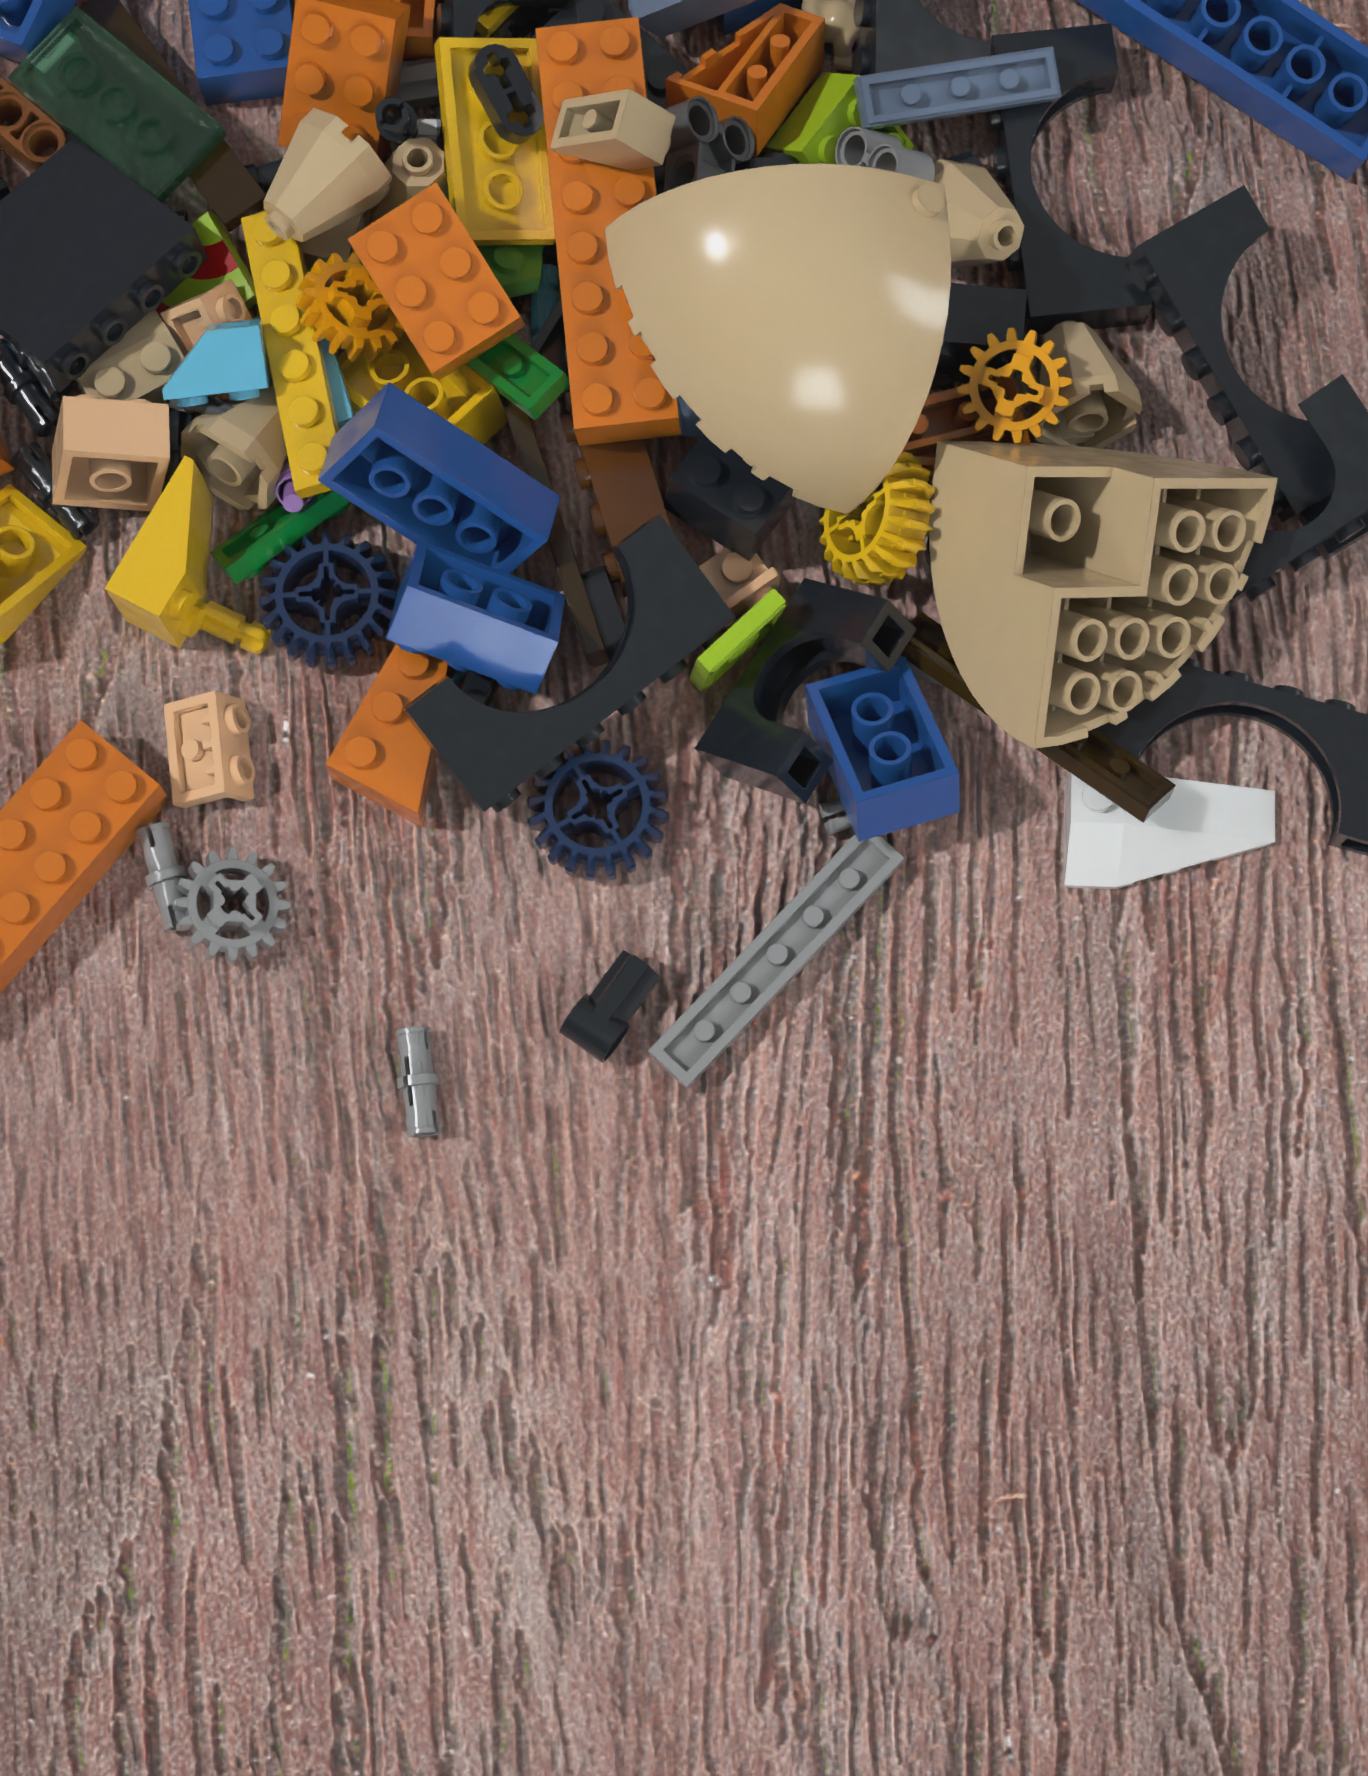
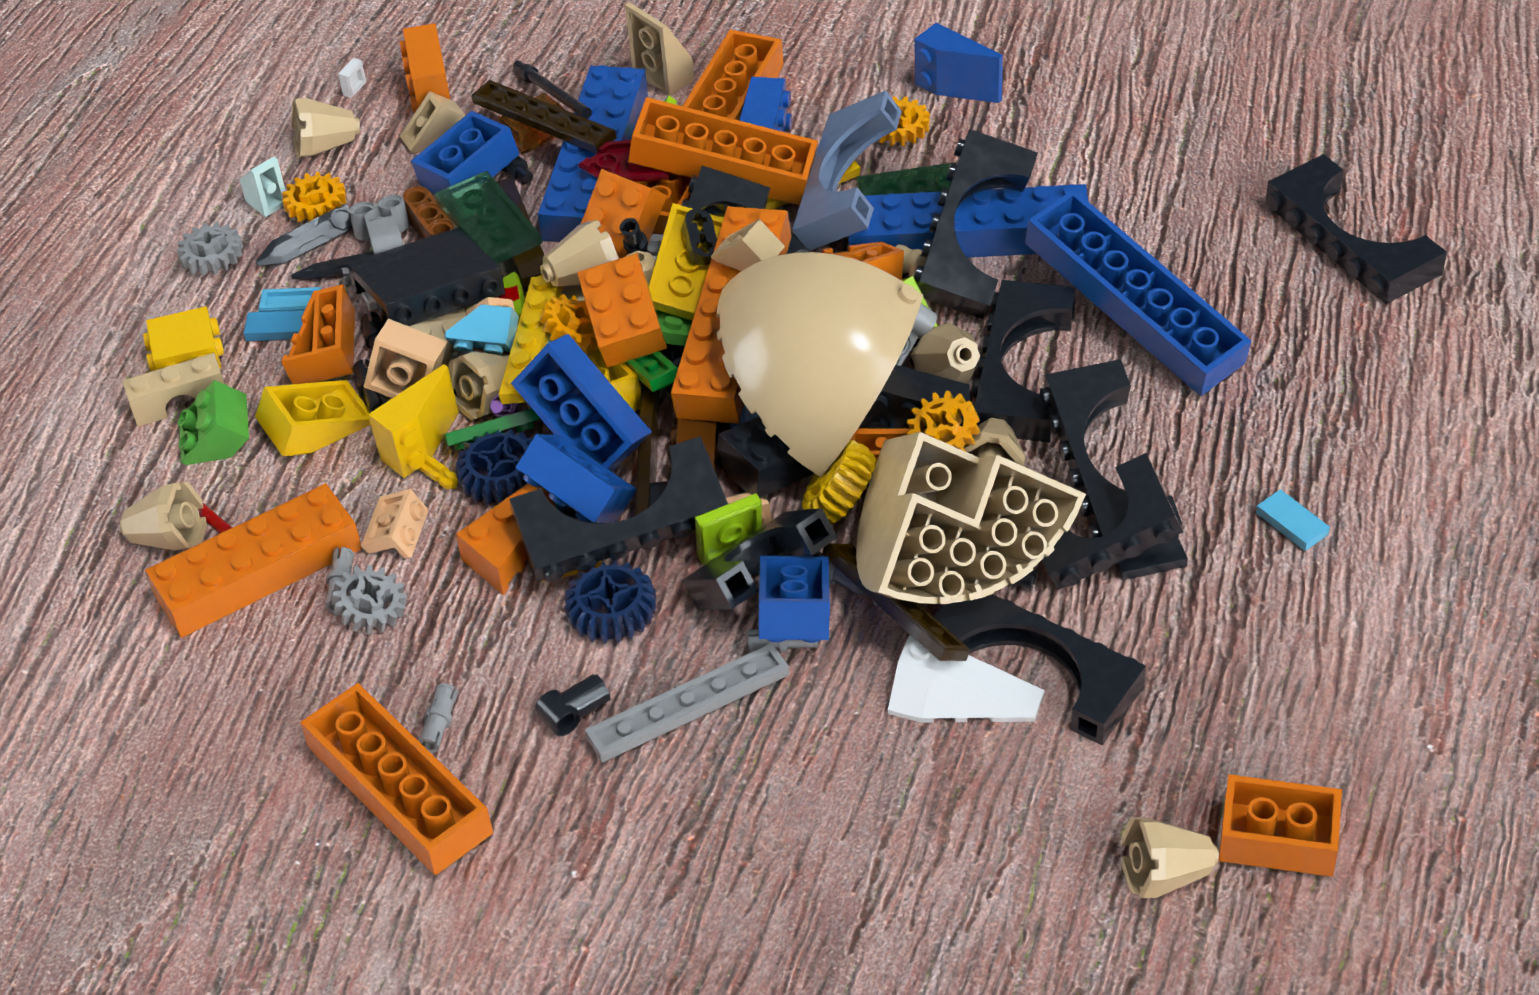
camera: 20 degrees right, 30 degrees down
(407, 1213) = (397, 778): none -> orange brick
(957, 88) = (972, 292): sand blue tile -> none

